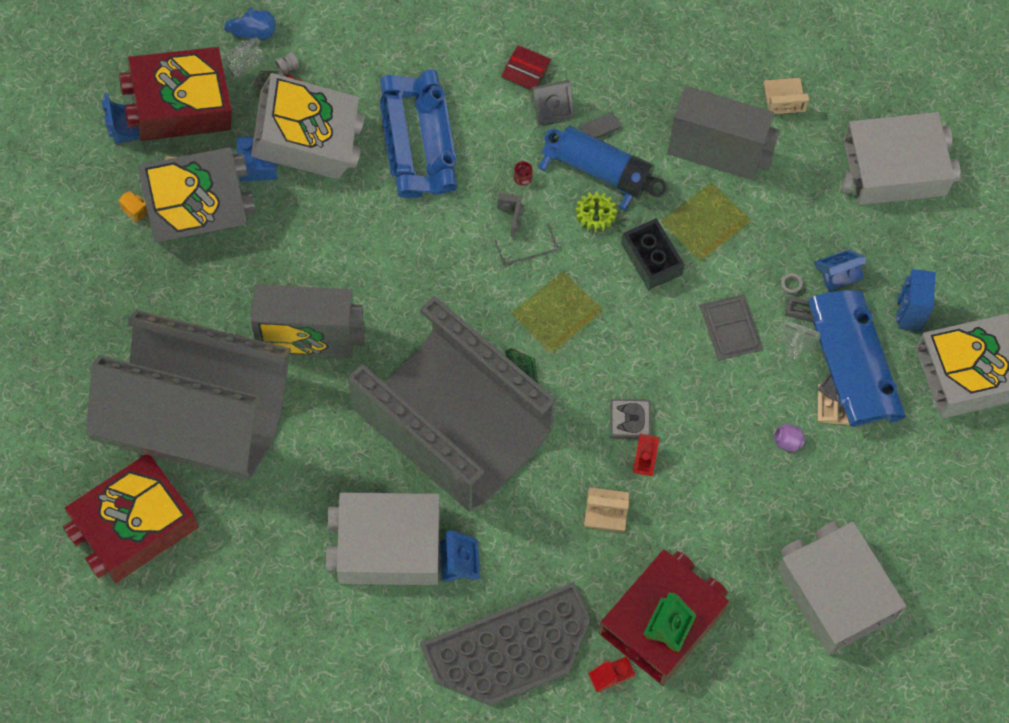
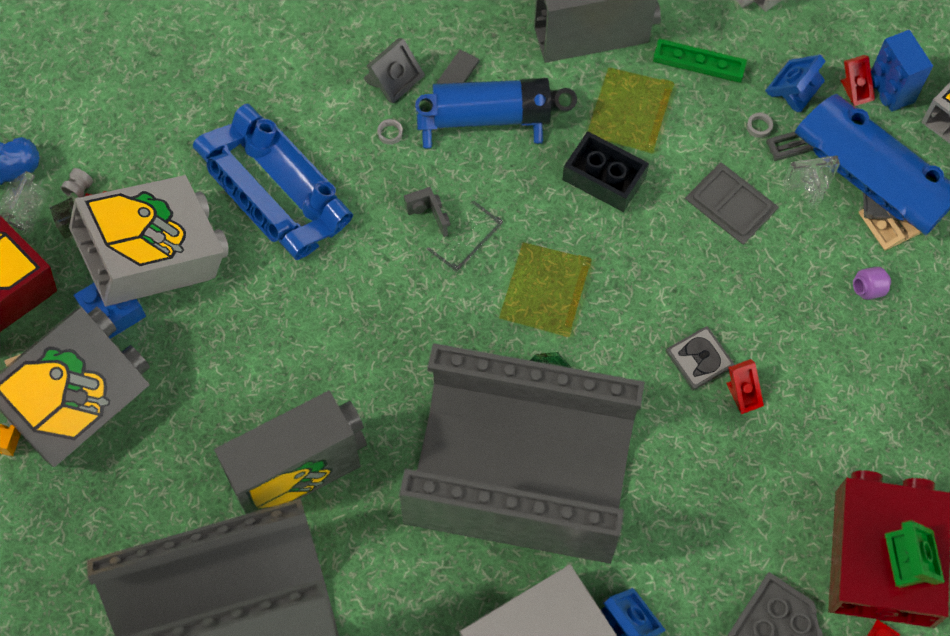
camera: 30 degrees left, 0 degrees up
(523, 136) = (390, 122): none -> light grey piece
(525, 170) = (412, 162): dark red wheel -> none
(526, 67) = (340, 52): dark red slope -> none
(588, 203) = (503, 155): lime gear -> none
(606, 510) = (745, 470): tan bracket -> none
(780, 213) = (699, 60): none -> green plate
(887, 291) = (858, 80): none -> red slope

